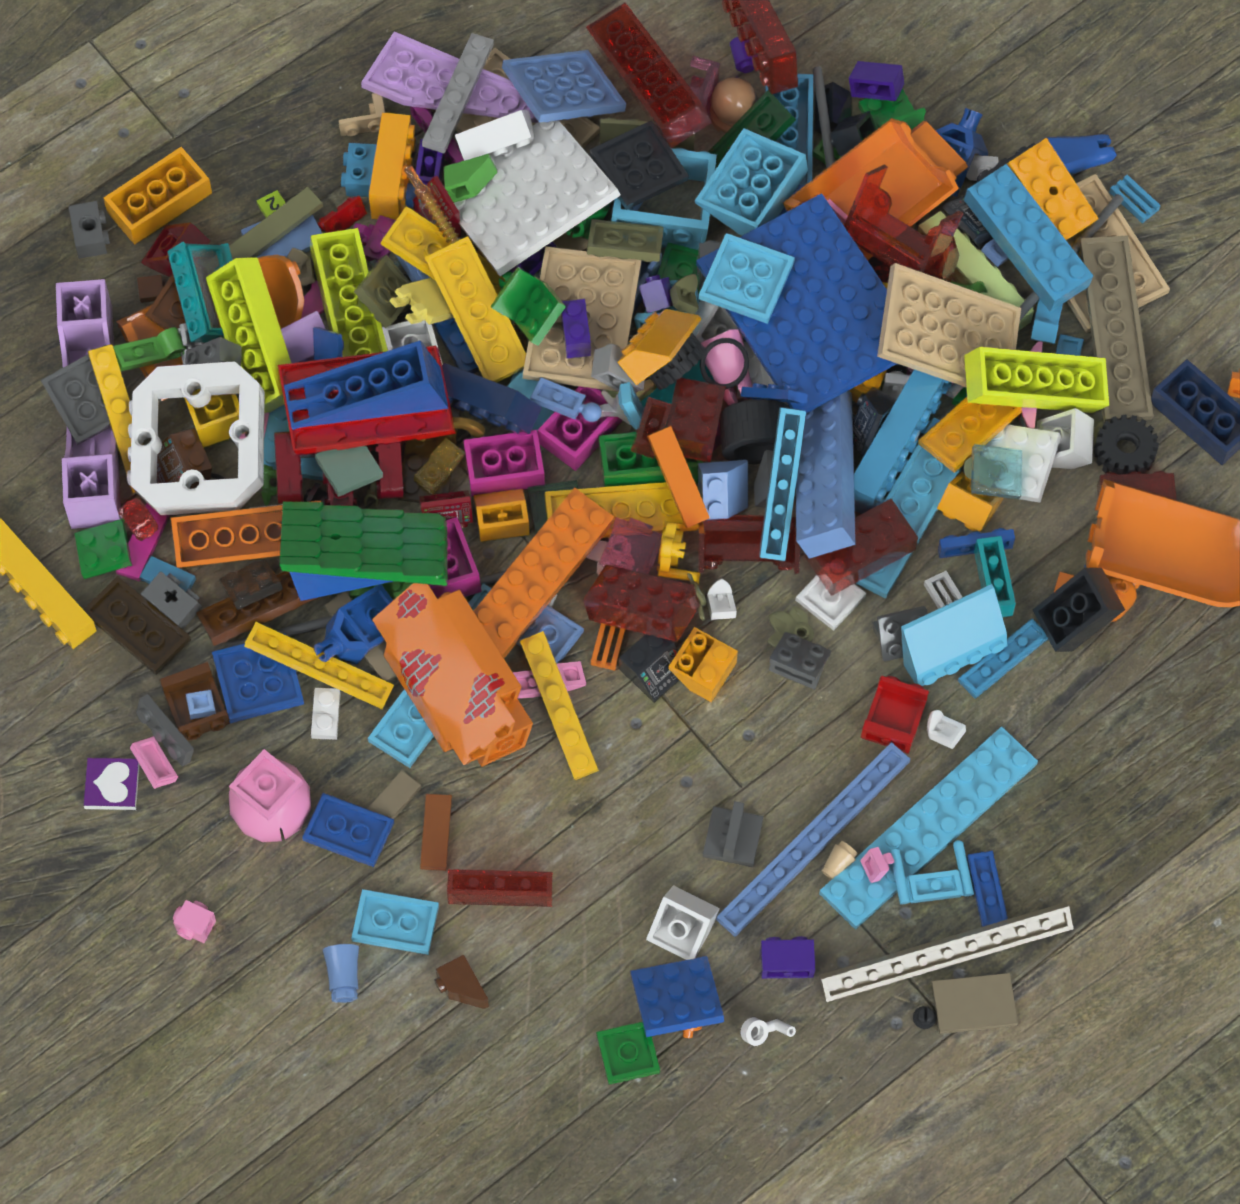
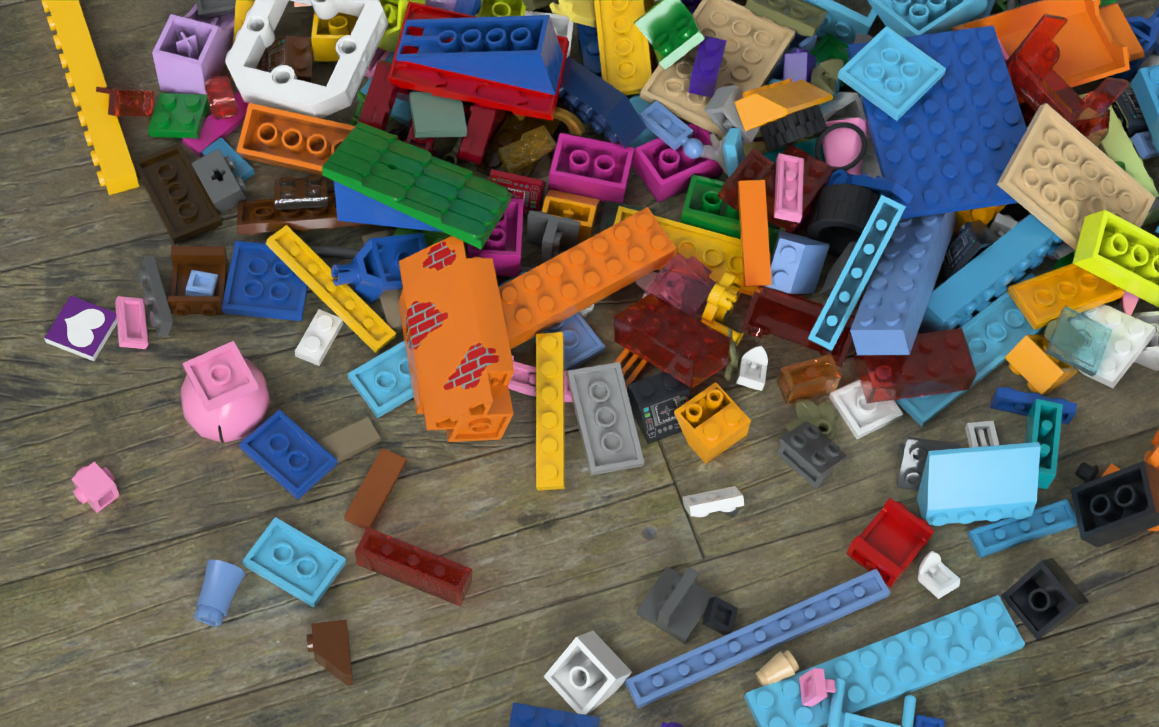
camera: 15 degrees right, 5 degrees down
(53, 552) = (128, 101): none -> clear red panel
(496, 540) = (551, 233): none -> dark grey bracket
(609, 695) = (605, 418): none -> light grey plate
(694, 424) = (789, 188): none -> bright pink tile
(730, 734) = (717, 500): none -> white plate
(734, 395) = (839, 177): none -> blue tile
(773, 592) = (808, 379): none -> clear orange brick
(774, 832) = (720, 616): none -> black plate
(1041, 714) = (1044, 598): none -> black slope
(1042, 588) = (1087, 472): none -> black piece

